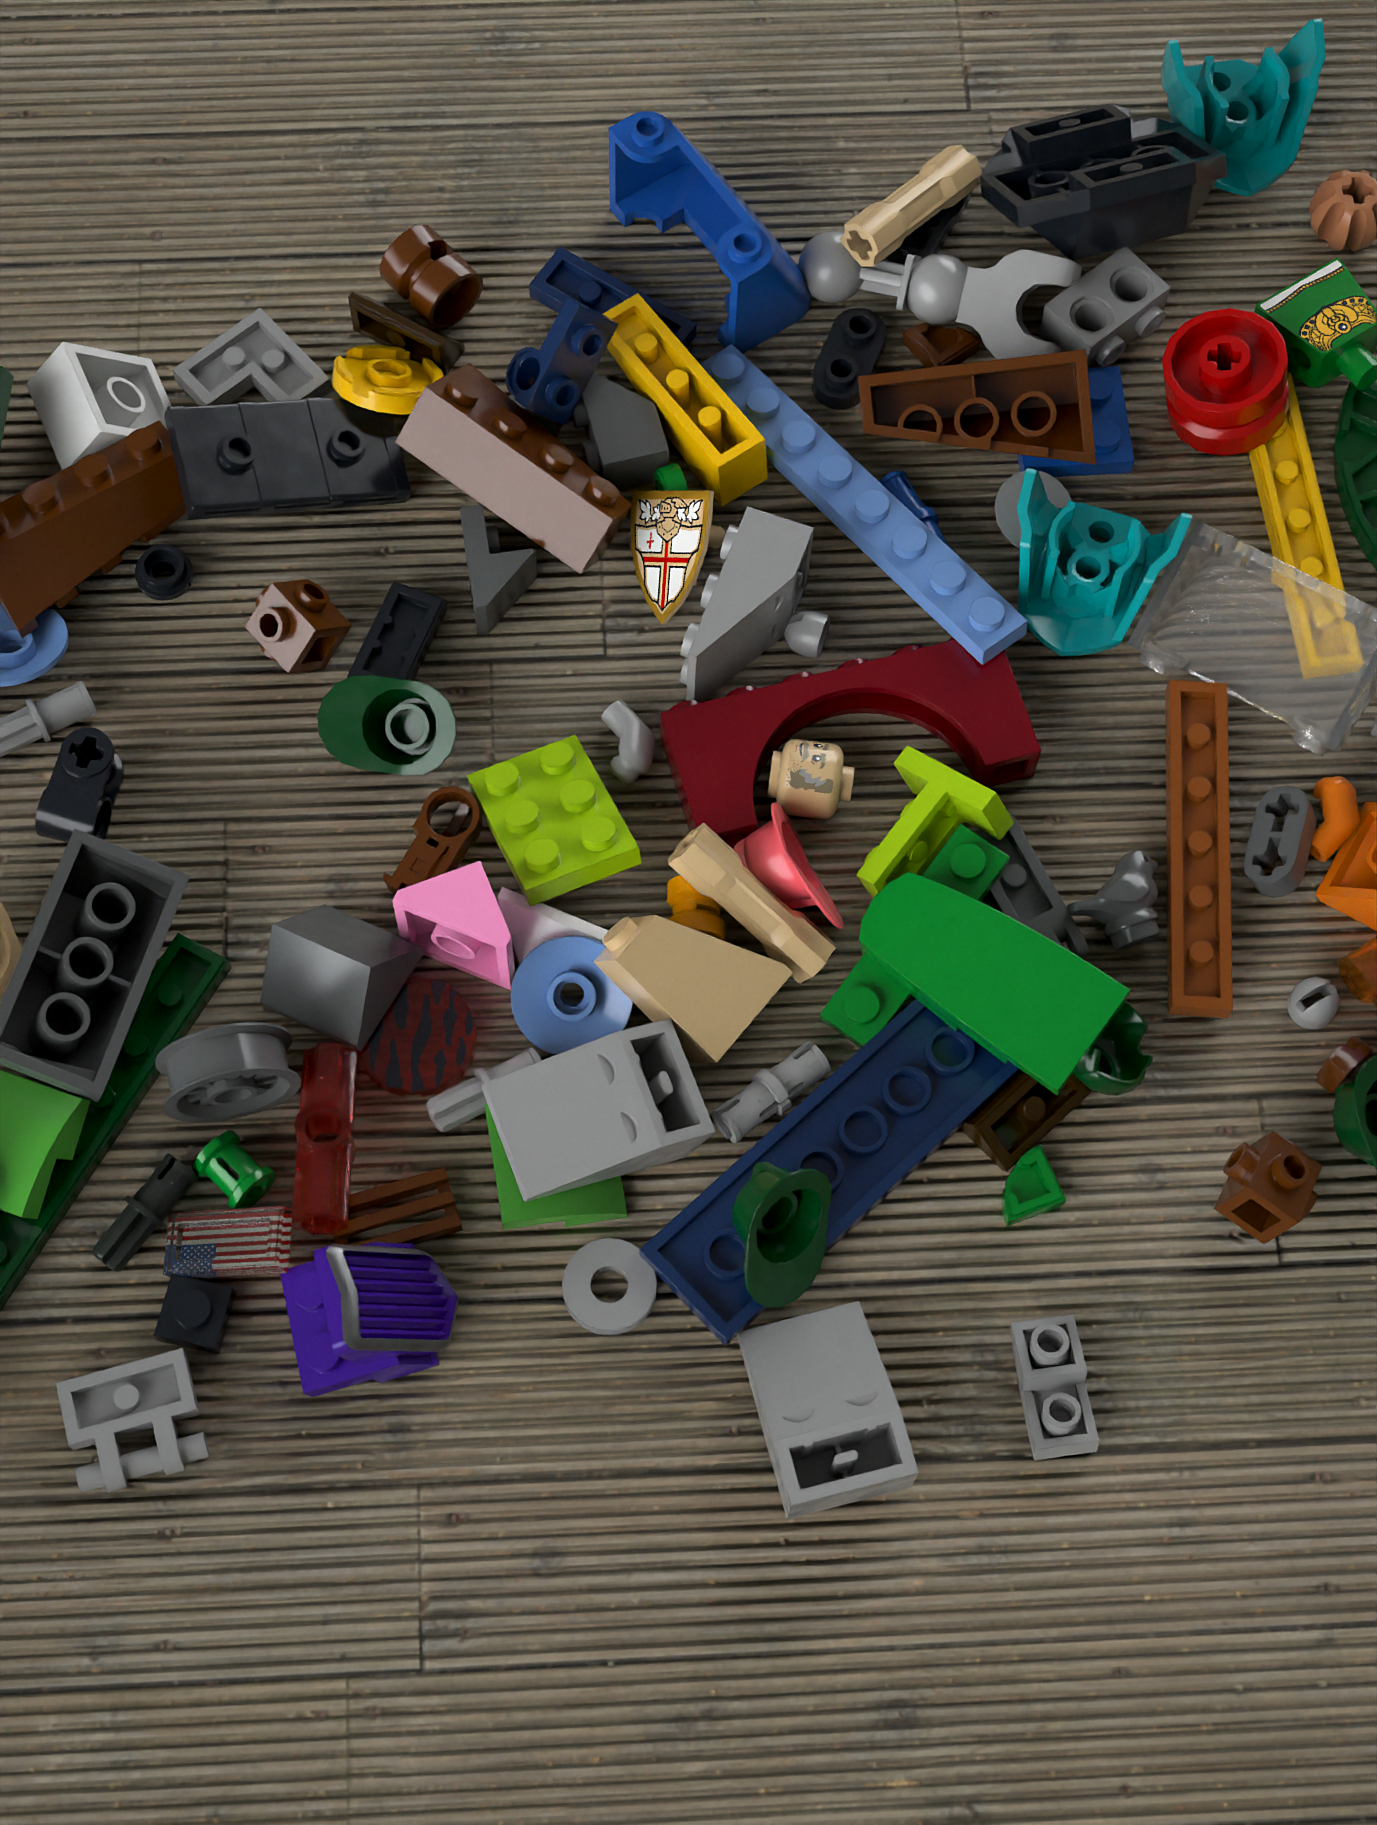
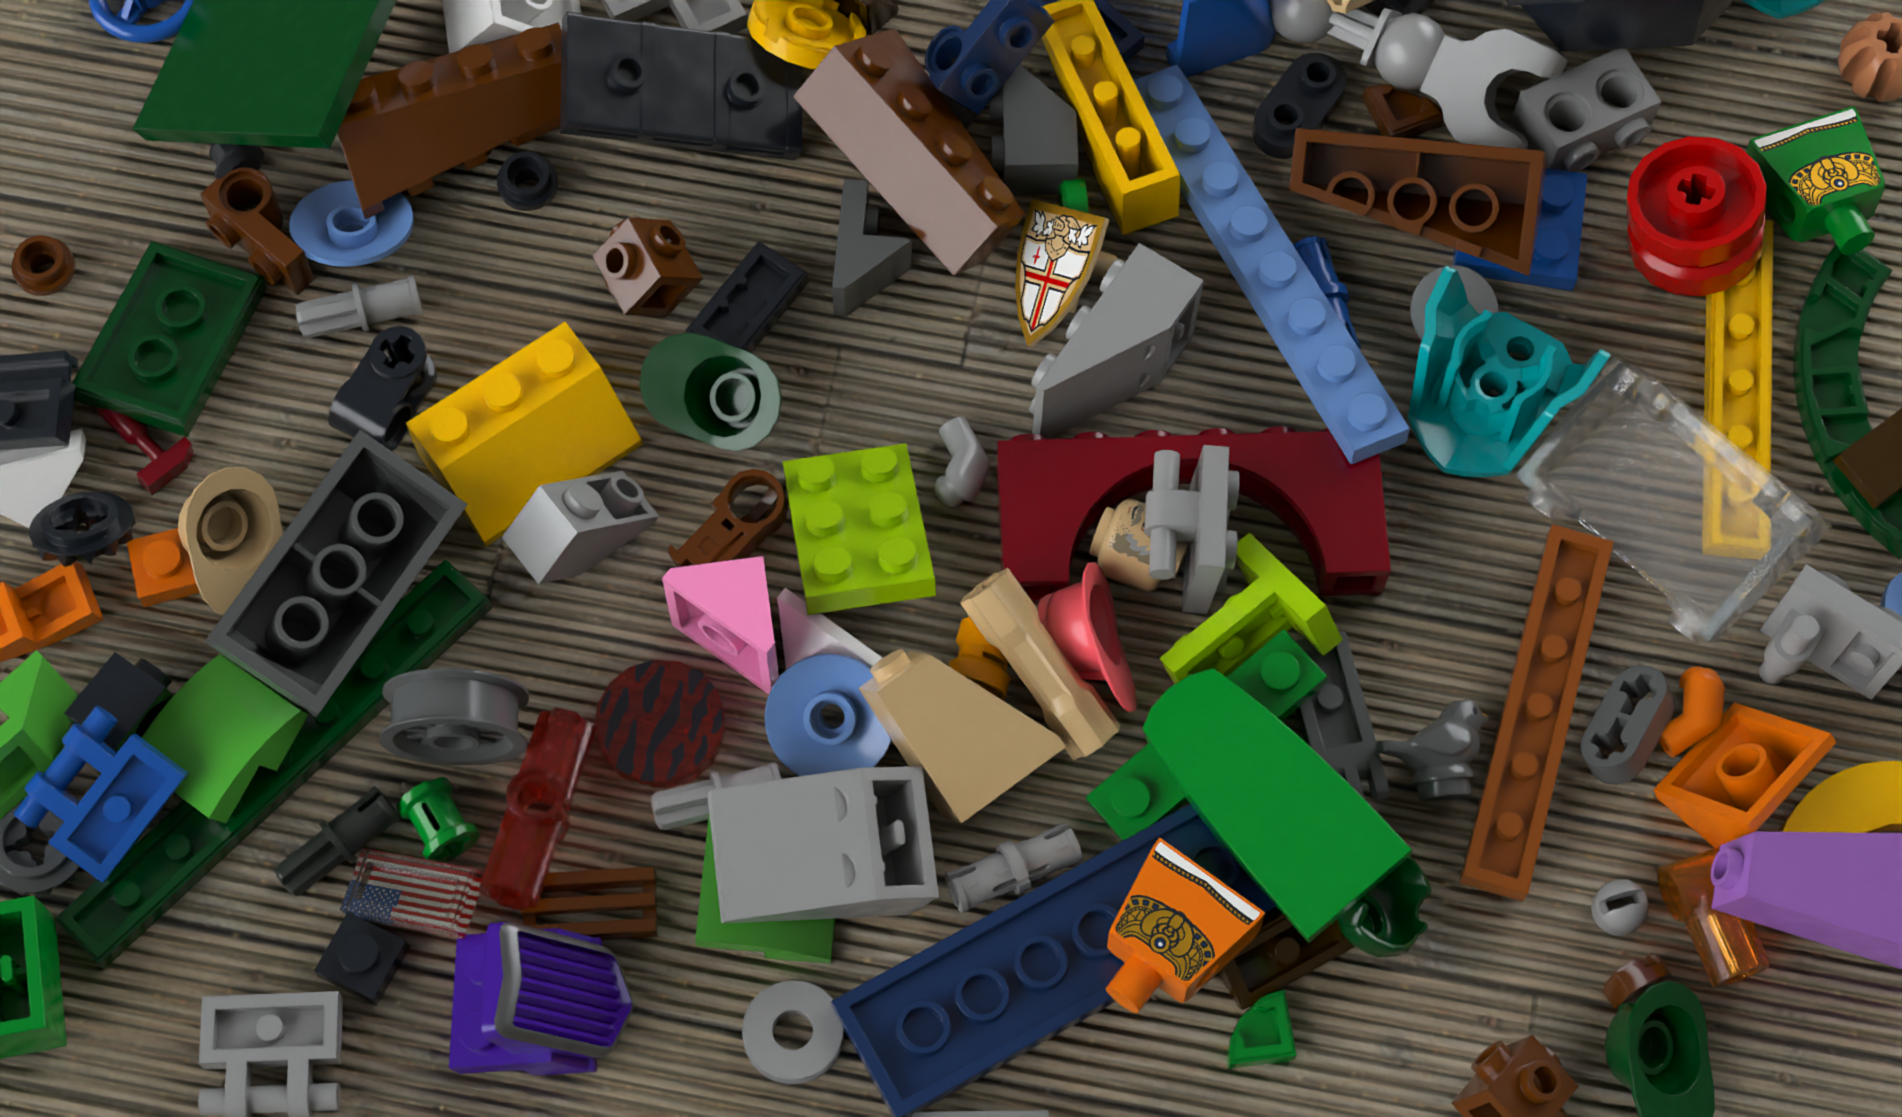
camera: 15 degrees right, 0 degrees up
(223, 801) = (523, 426): none -> yellow slope
(294, 871) = (577, 524): none -> light grey slope
(335, 973) = (594, 637): dark grey slope -> none
(784, 1231) = (982, 1019): dark green piece -> none
(807, 633) = (1178, 389): light grey hinge -> none
(861, 742) = (1195, 518): none -> light grey plate
(936, 1111) = (1176, 929): none -> orange torso

